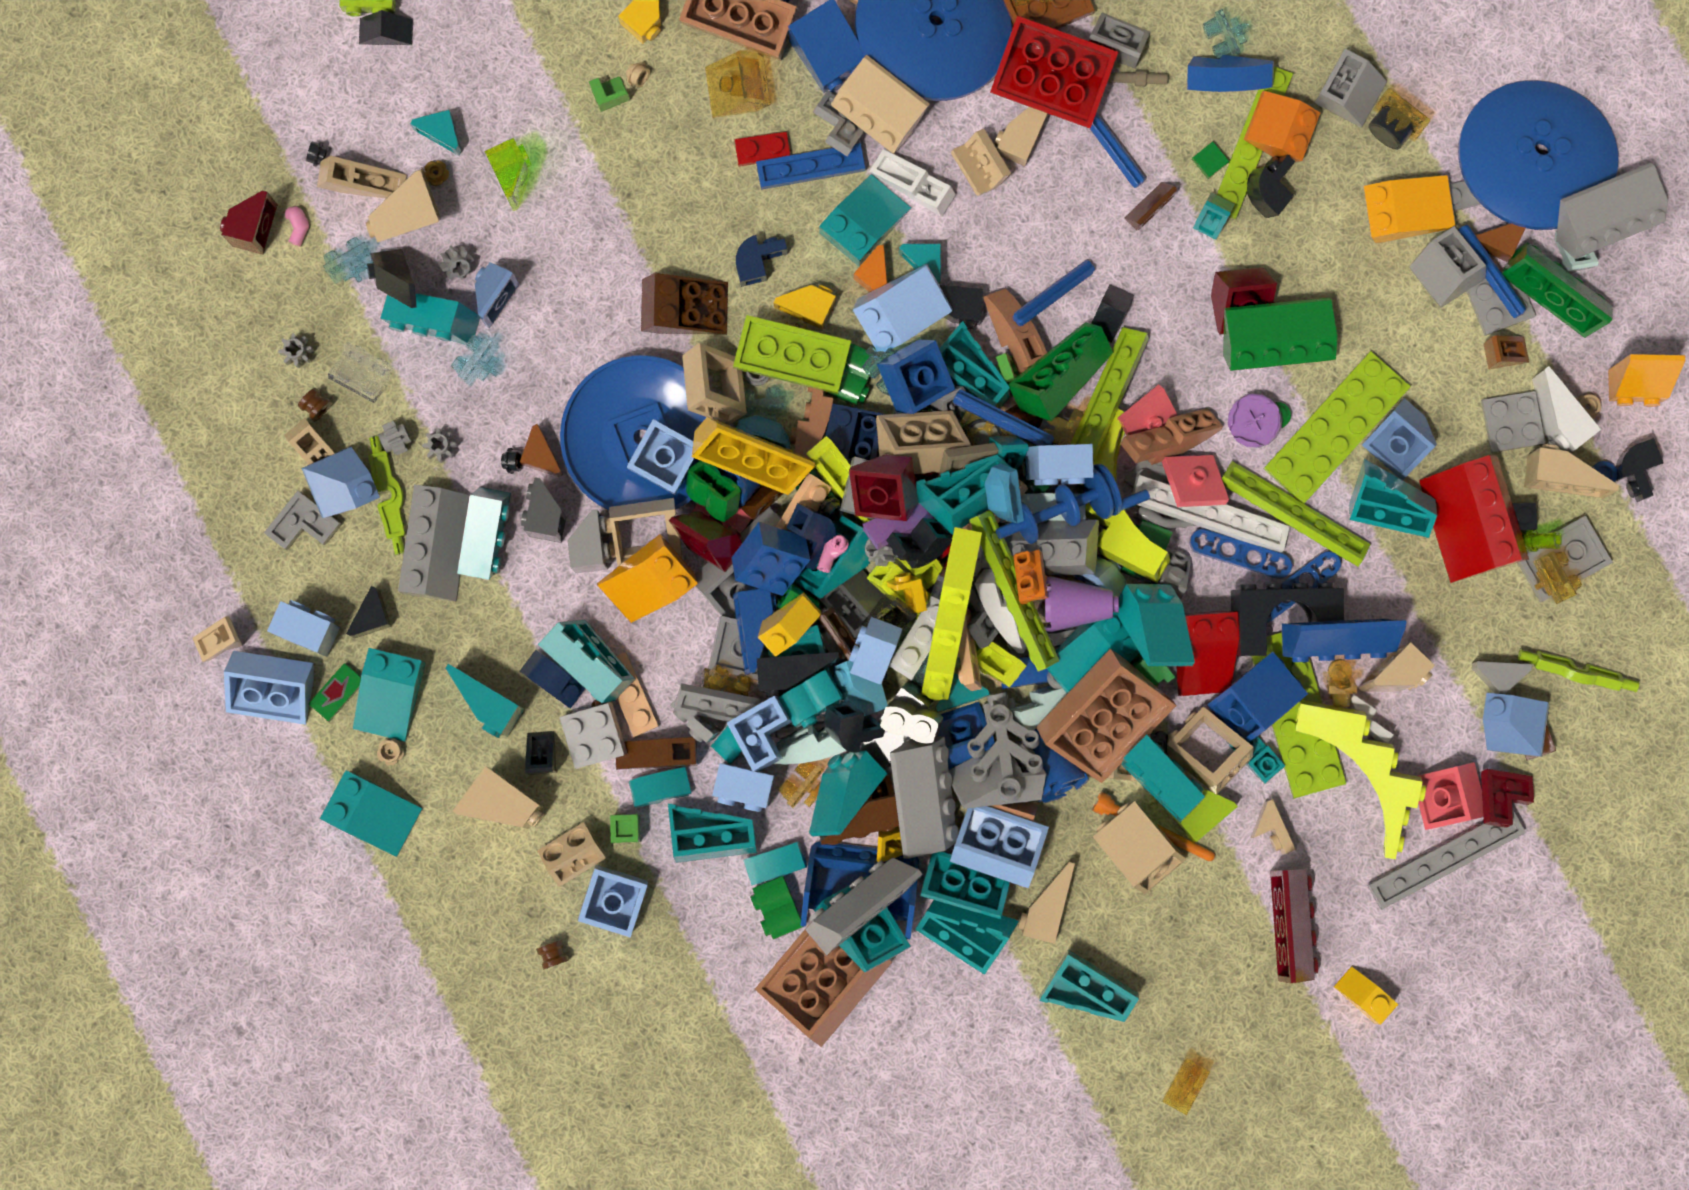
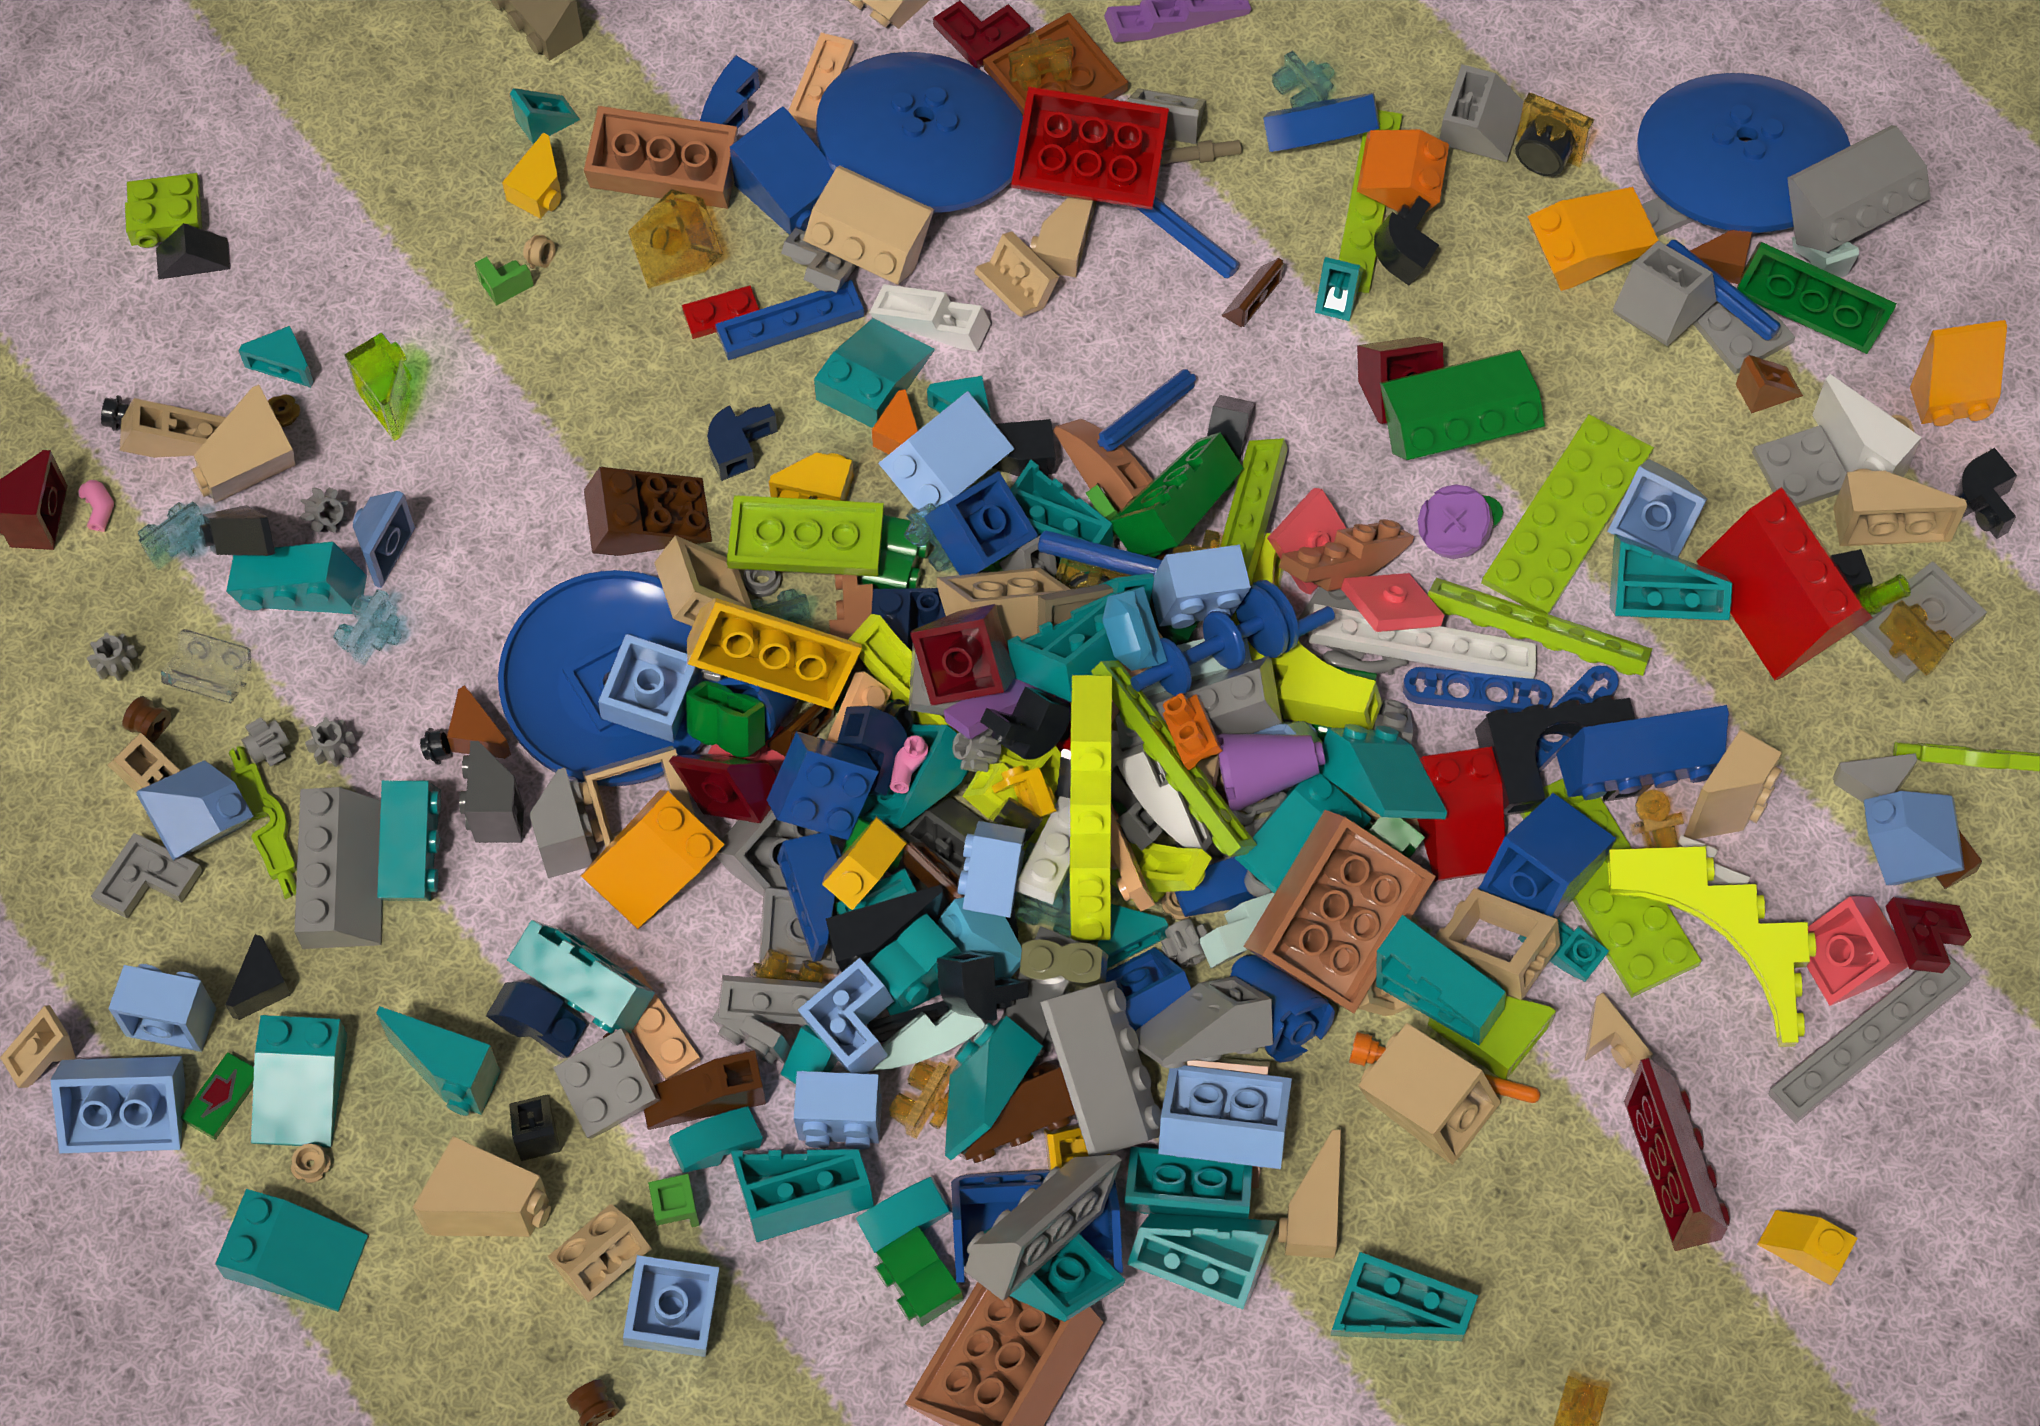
camera: 10 degrees left, 20 degrees down
(1003, 748) = (1190, 946): light grey plant -> none
(1210, 160) = (1319, 229): green tile -> none

